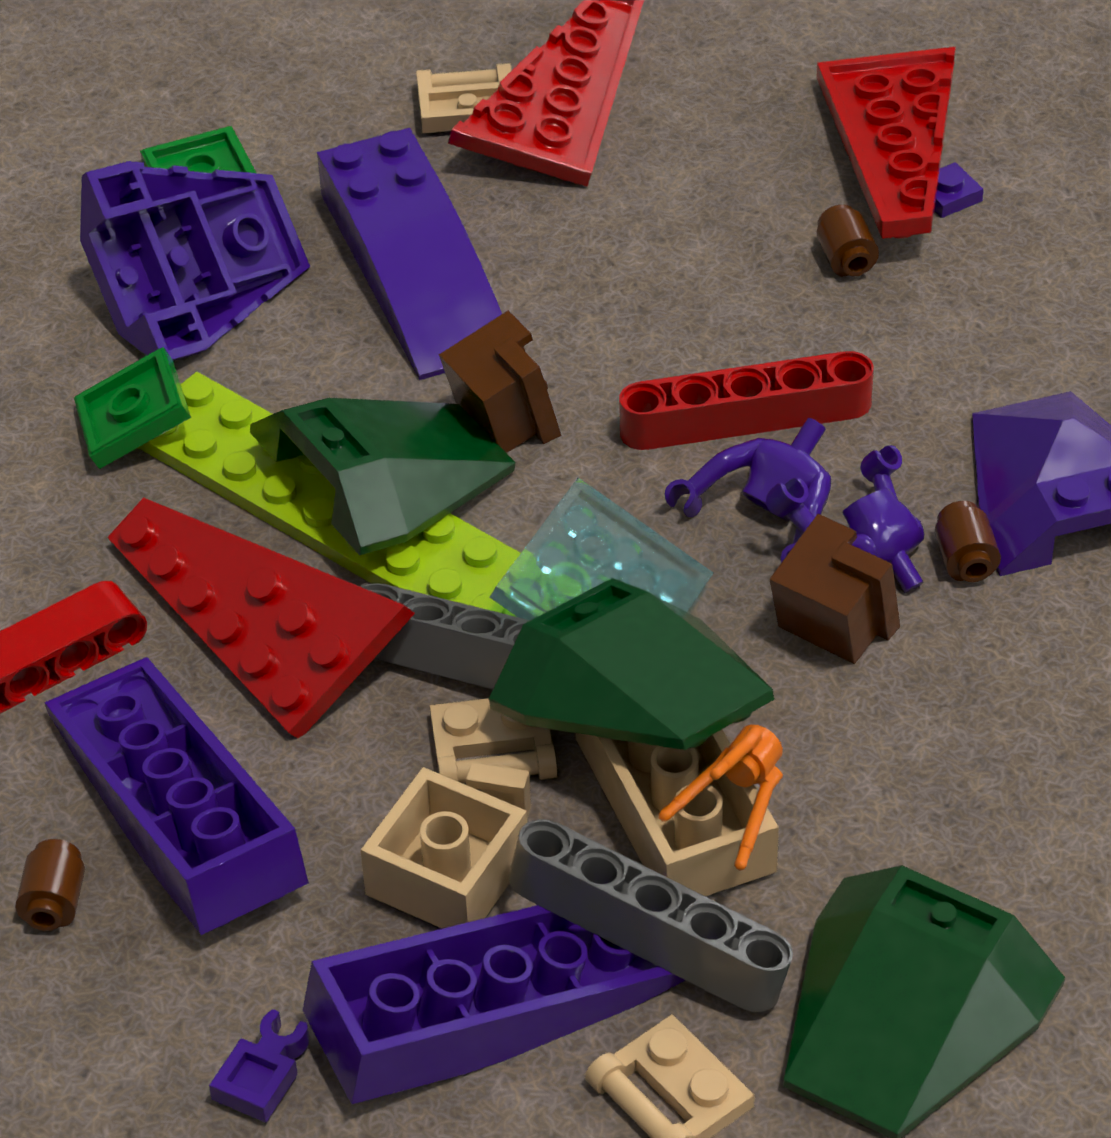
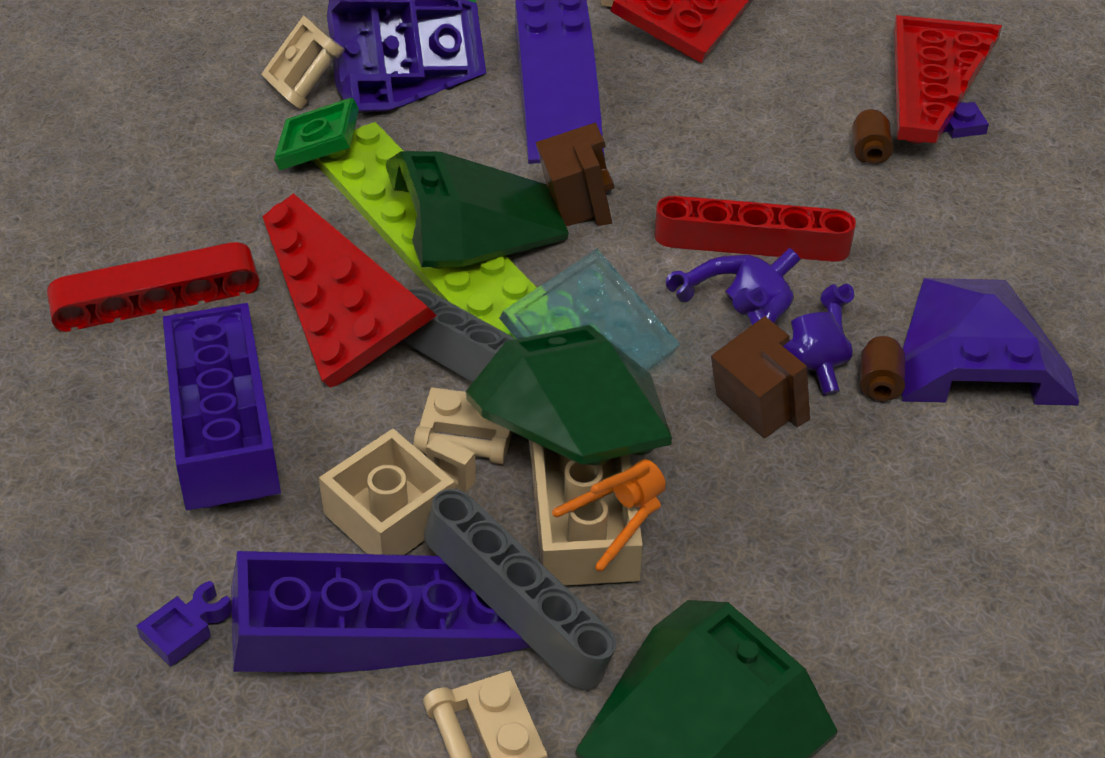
camera: 15 degrees right, 0 degrees up
(50, 885) = (101, 445): reddish brown brick -> none
(54, 306) = (294, 58): none -> tan plate

